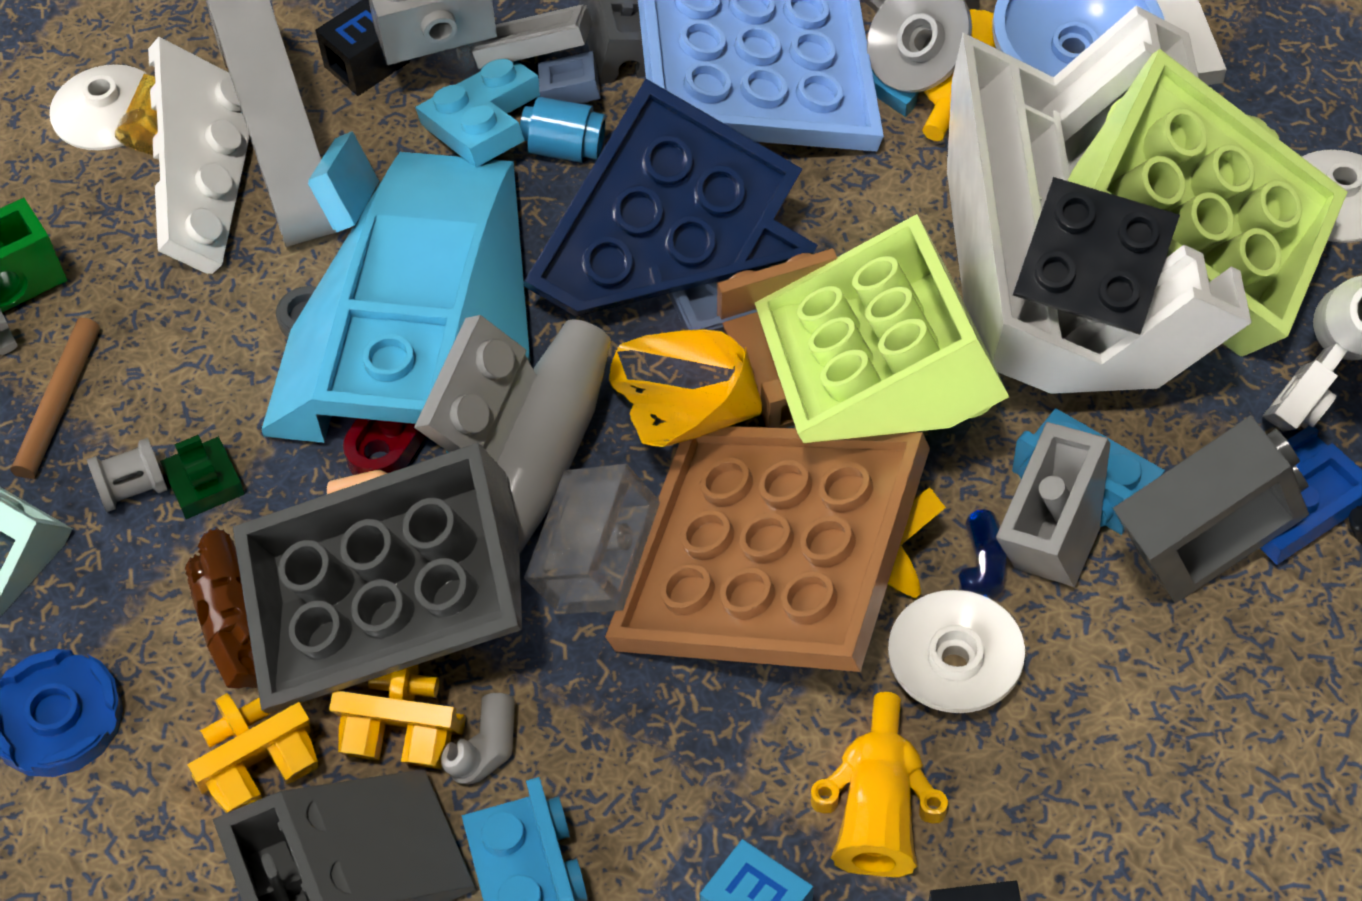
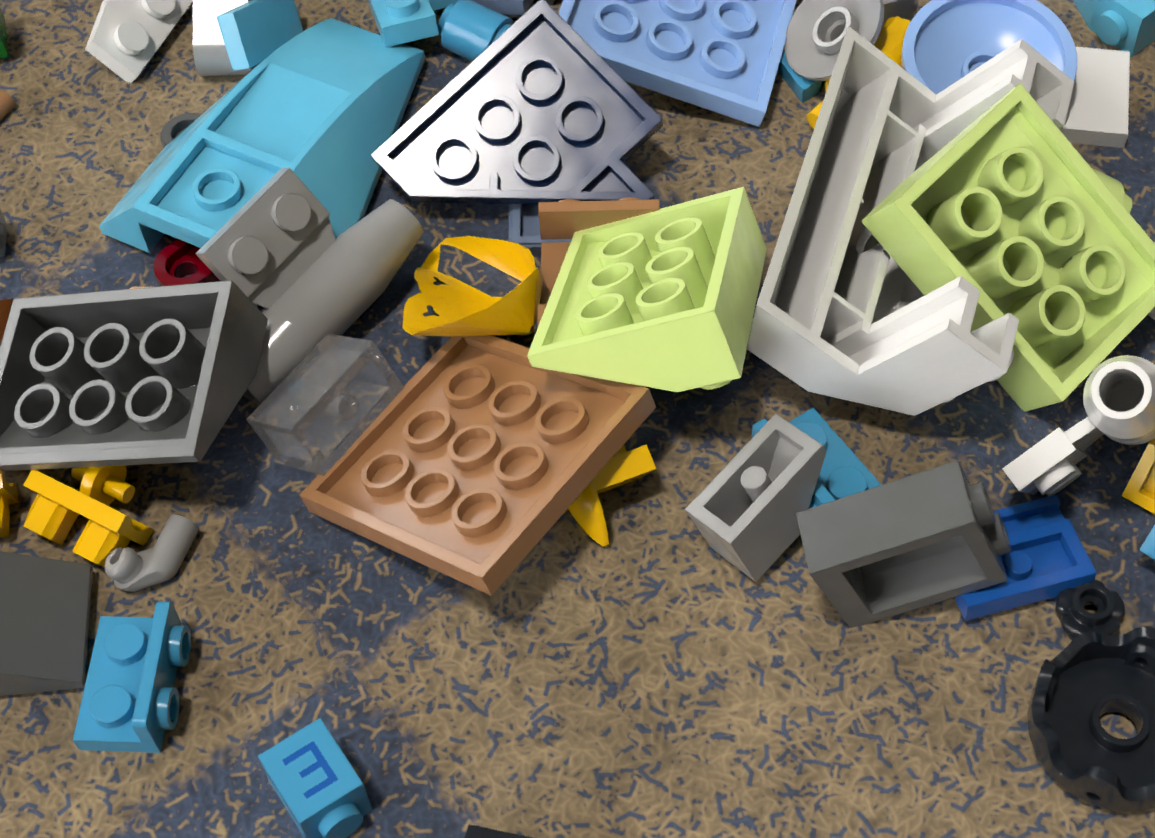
camera: 20 degrees right, 0 degrees up
(201, 475) = (33, 251): dark green tile -> none
(877, 812) = (473, 719): yellow piece -> none
(962, 626) = (603, 581): white dish -> none
(989, 575) = (678, 544): clear blue arm -> none
(1096, 255) = (875, 265): black hinge -> none

